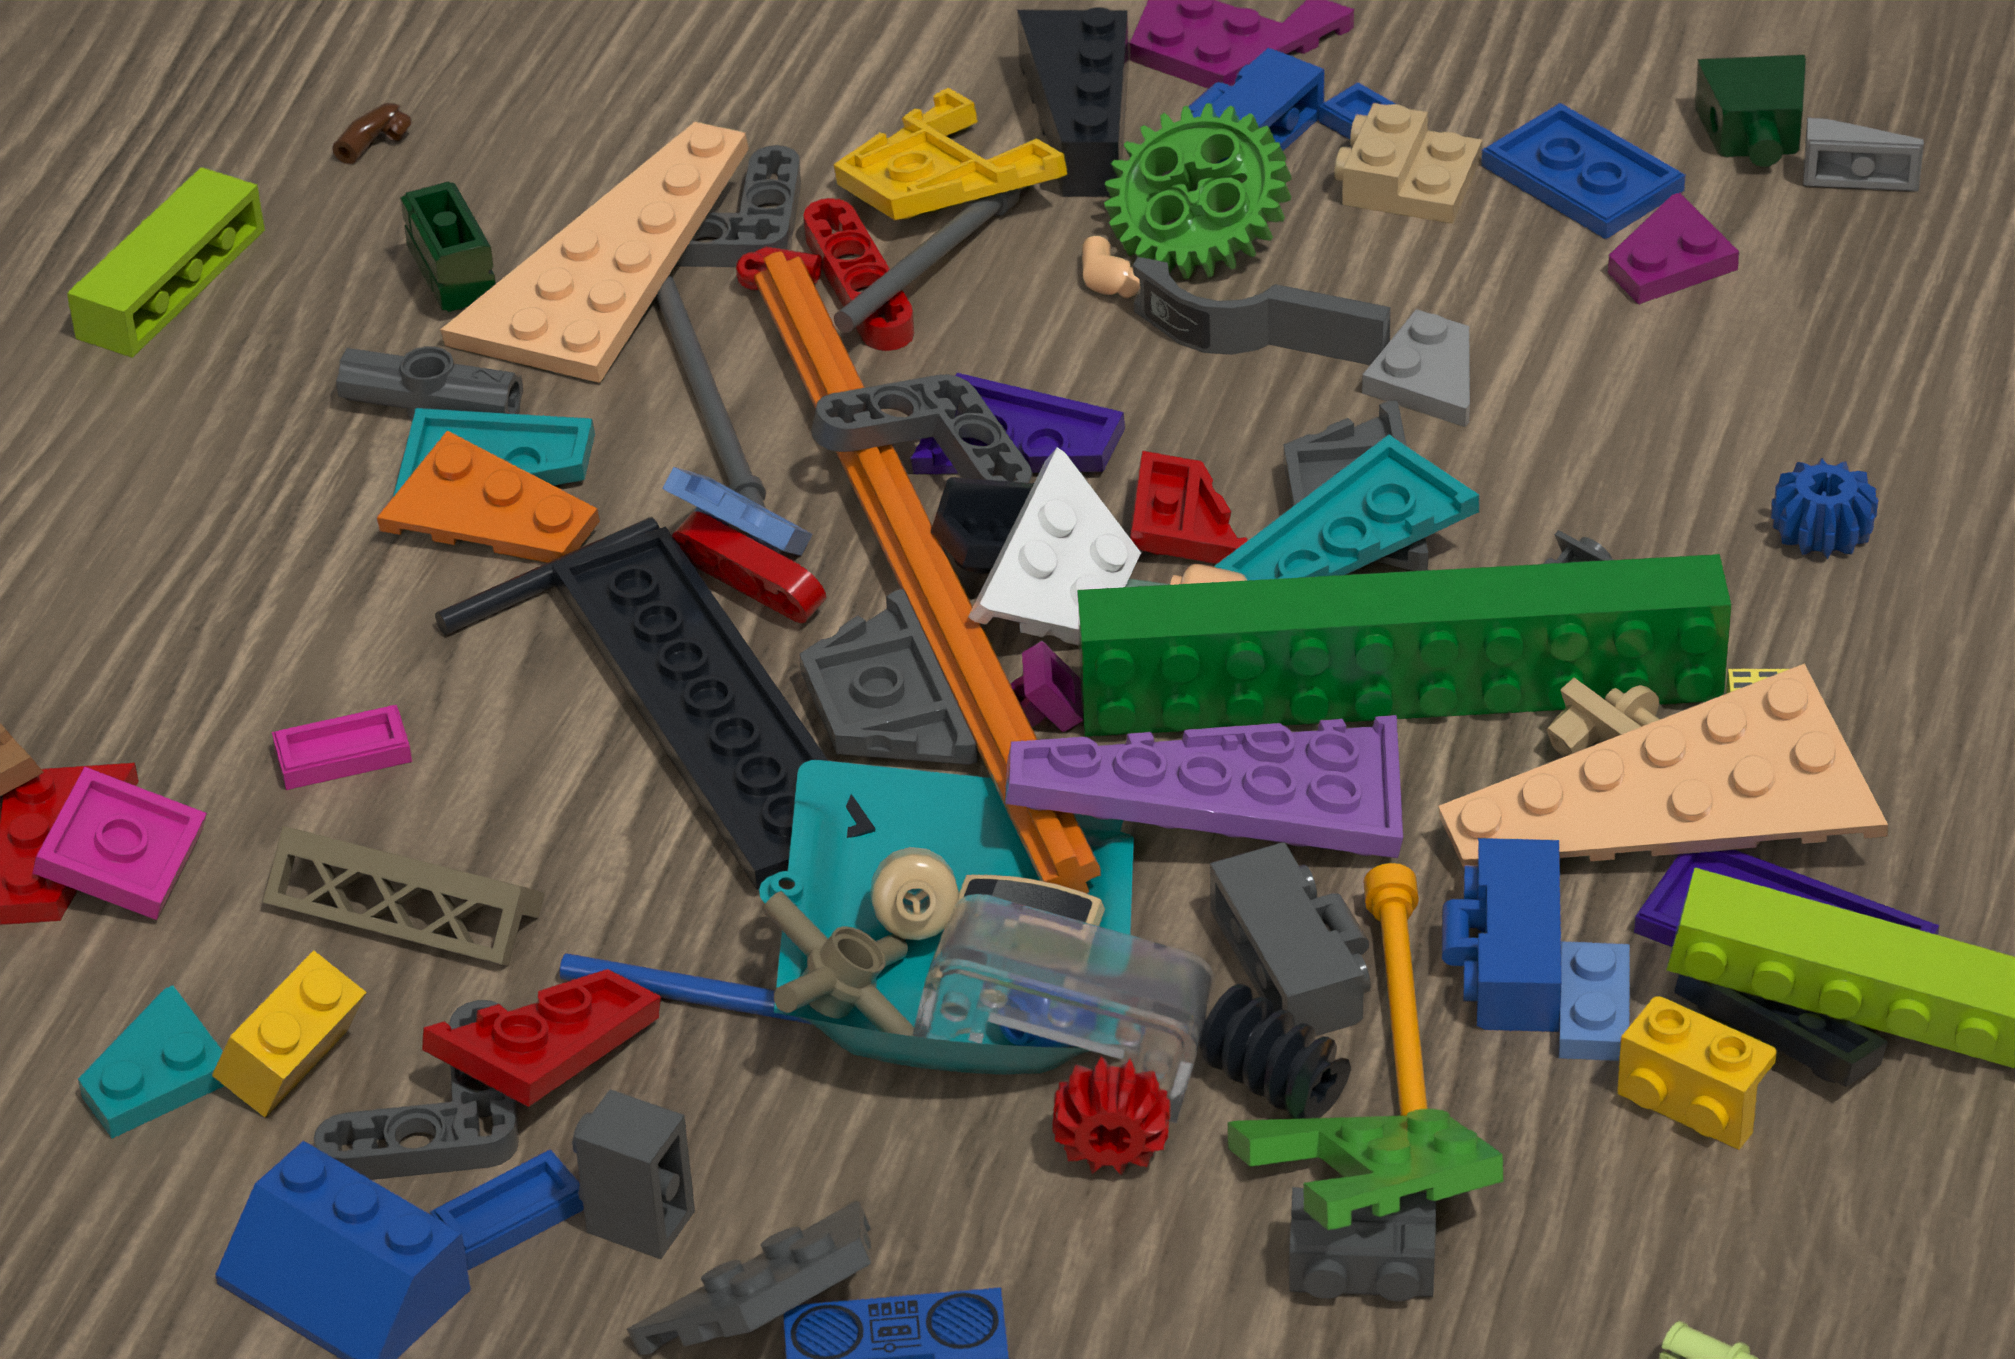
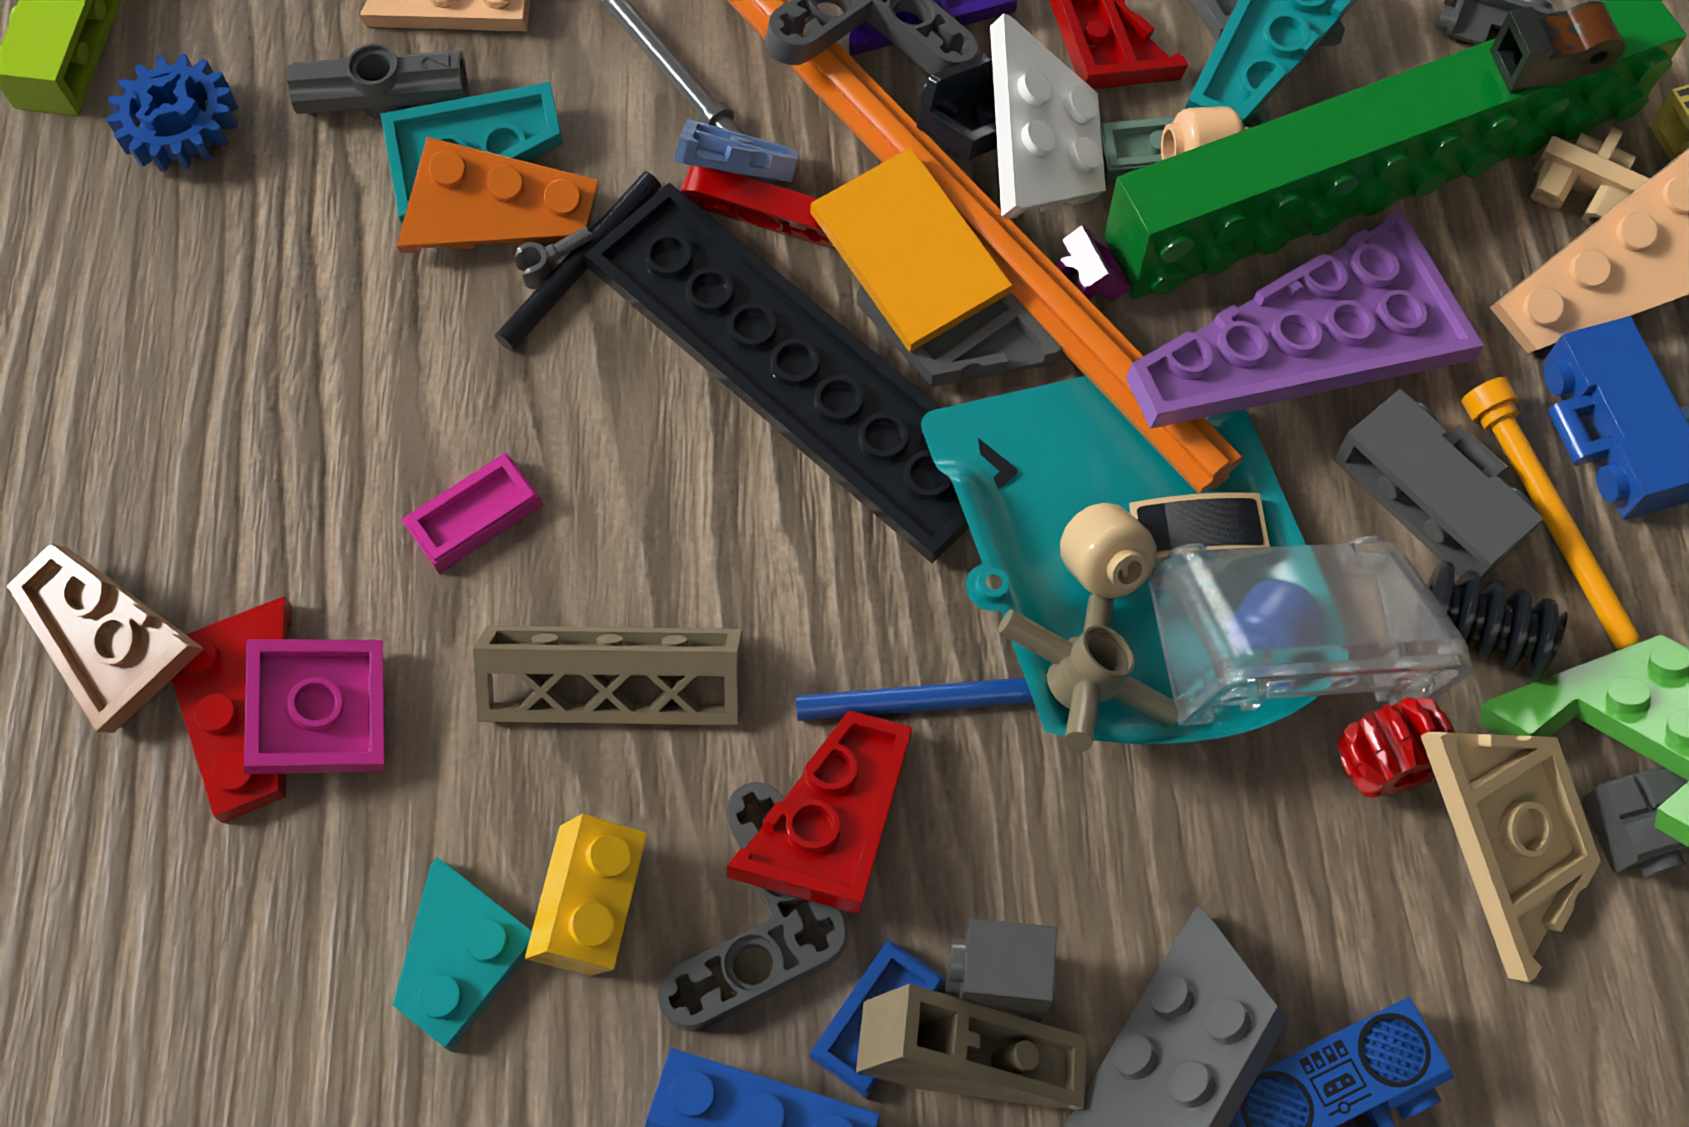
camera: 20 degrees left, 25 degrees up
(222, 368) = (172, 112): none -> blue gear
(505, 562) = (534, 253): none -> dark grey hand
(568, 1222) = (969, 1050): none -> dark tan slope
(864, 623) = (910, 249): none -> light orange tile
(1185, 1202) = (1517, 833): none -> tan wing
(1572, 575) = (1555, 45): none -> pearl dark grey leg

